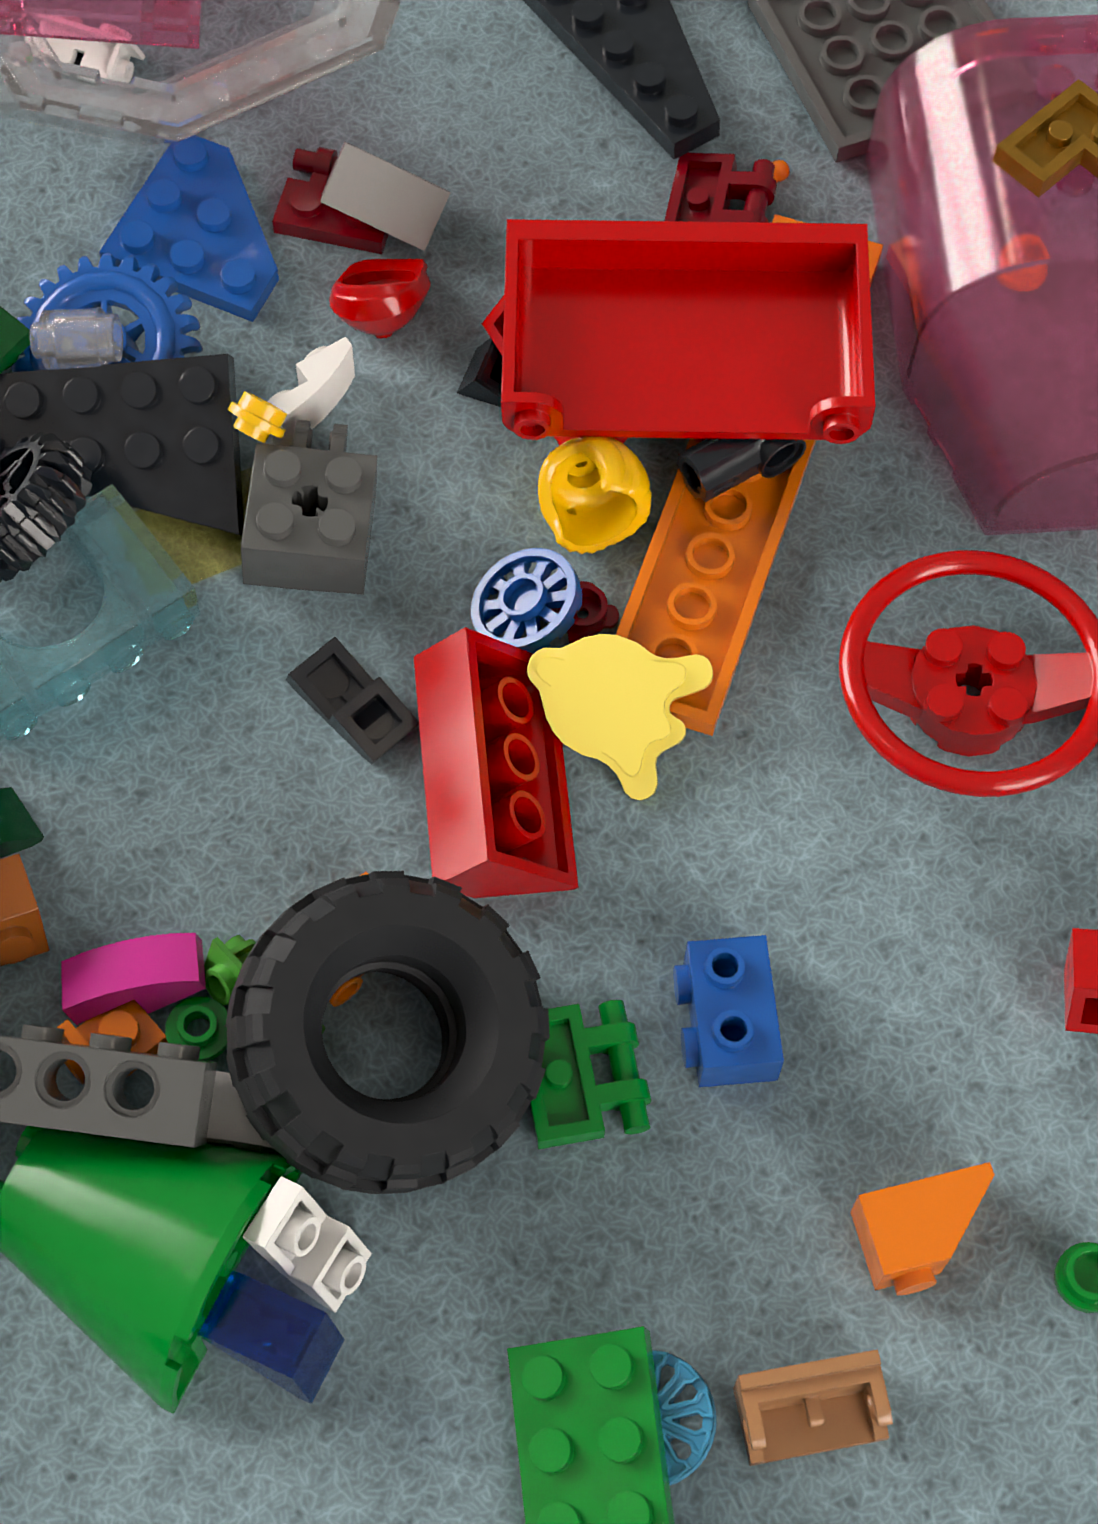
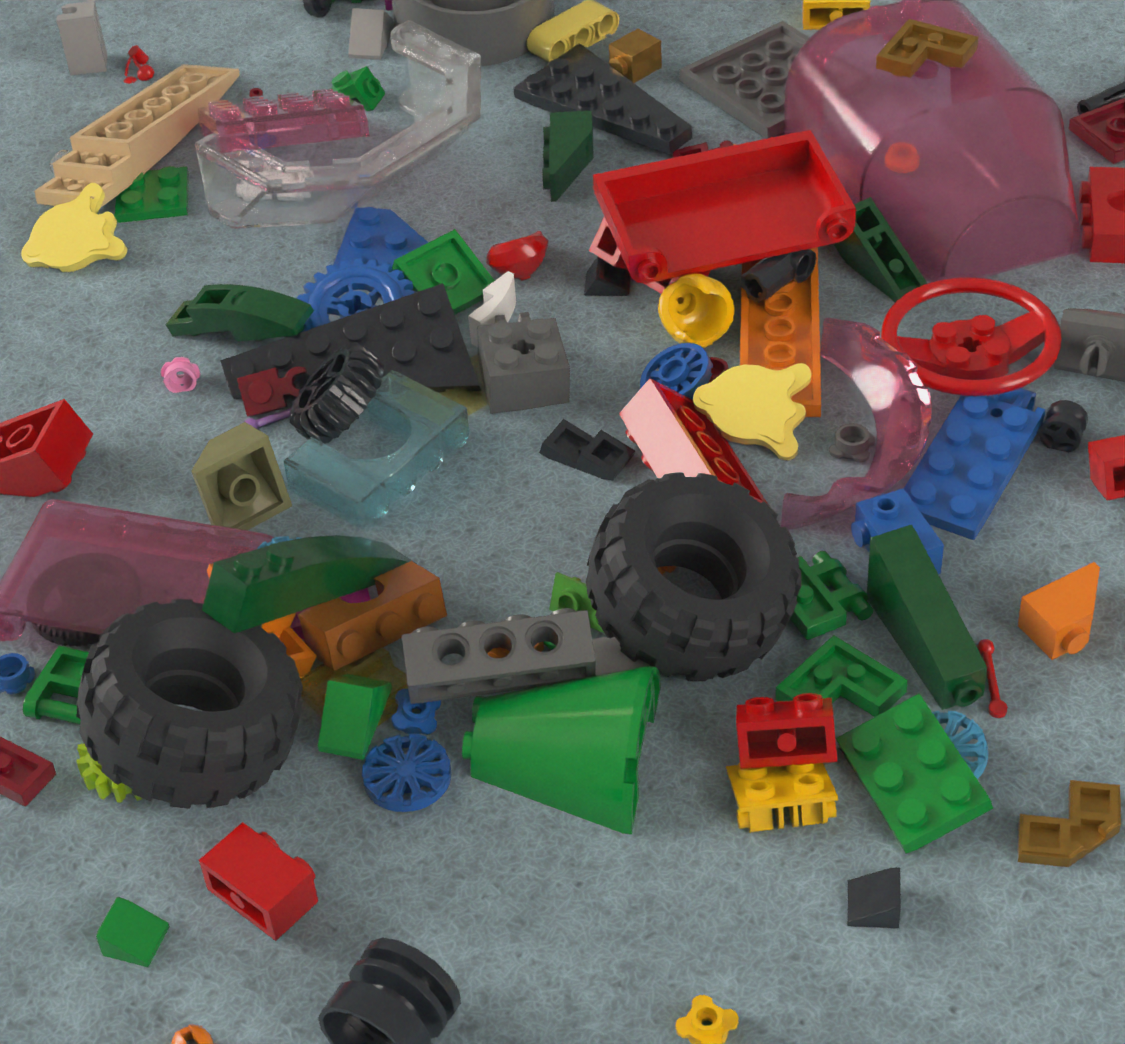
camera: 10 degrees left, 20 degrees down
(76, 338) = (342, 300): clear brick -> none
(142, 969) = (526, 599): dark pink slope -> none
(257, 309) = (447, 262): none -> green plate
(257, 417) = (473, 312): yellow plate -> none
(273, 1334) = (687, 756): clear blue slope -> none
(305, 217) = (476, 226): dark red plate -> none
(308, 1245) = (687, 712): white slope -> none
(384, 196) = (502, 201): light grey hinge -> none
(399, 1409) = (779, 787): none -> yellow hinge
(432, 1332) = (786, 731): none -> red brick
(530, 105) = (566, 149): none -> dark green slope
(556, 1228) = (846, 672): none -> green plate
(706, 1190) = (923, 618): none -> dark green slope
(744, 788) = (852, 442): none -> dark grey plate
(762, 1355) = (997, 707): none -> red hinge
(813, 1407) = (1042, 717): medium nougat hinge -> none
(816, 802) = (900, 412): none -> clear pink windscreen
(897, 895) = (974, 459): none -> blue hinge
(913, 458) = (878, 253): none -> dark green slope
(1056, 871) = (1063, 426): none -> black wheel

